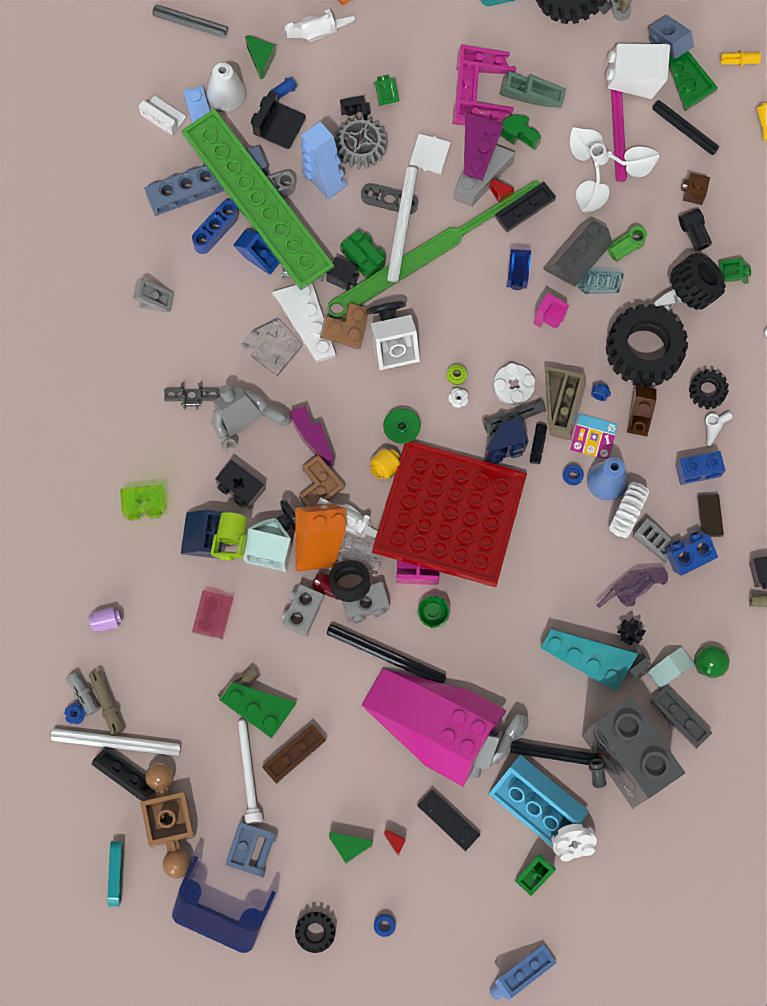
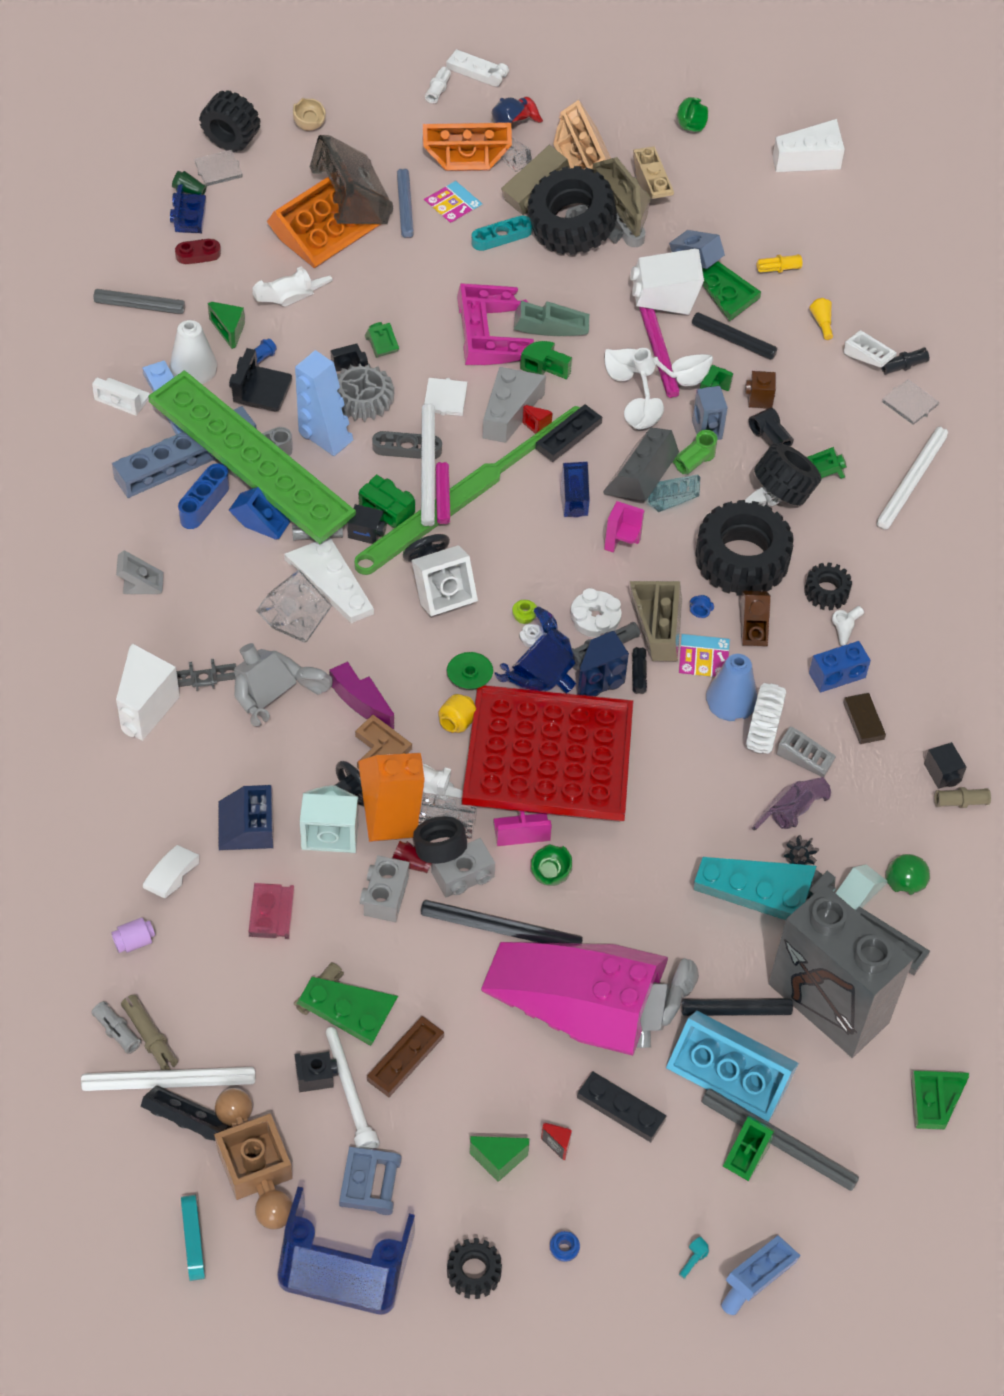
camera: 10 degrees left, 20 degrees down
(75, 707) = (112, 1059): blue plate -> none
(133, 497) = (161, 796): clear neon green brick -> none
(140, 410) = (145, 692): none -> white slope
(140, 568) = (168, 873): none -> white slope
(216, 759) = (309, 1074): none -> black brick
(231, 532) = (282, 804): lime piece -> none
(235, 474) = (281, 760): black brick -> none
(348, 331) = (385, 581): medium nougat plate -> none
(409, 254) = (442, 493): none -> dark pink axle
(464, 427) = (545, 661): none -> clear blue torso
(479, 145) = (503, 369): magenta wing -> none
(483, 944) = (700, 1250): none -> teal hand
(562, 867) = (784, 1141): none -> dark grey axle
(573, 469) = (692, 691): blue plate -> none
(583, 843) = (794, 1112): white plate -> none
(597, 769) = (799, 1017): dark grey pin -> none
(646, 209) = (710, 411): none -> sand blue brick
(660, 170) = (717, 377): none -> green bracket
(688, 854) = (936, 1097): none -> green wing
(692, 558) = (853, 758): blue brick -> none

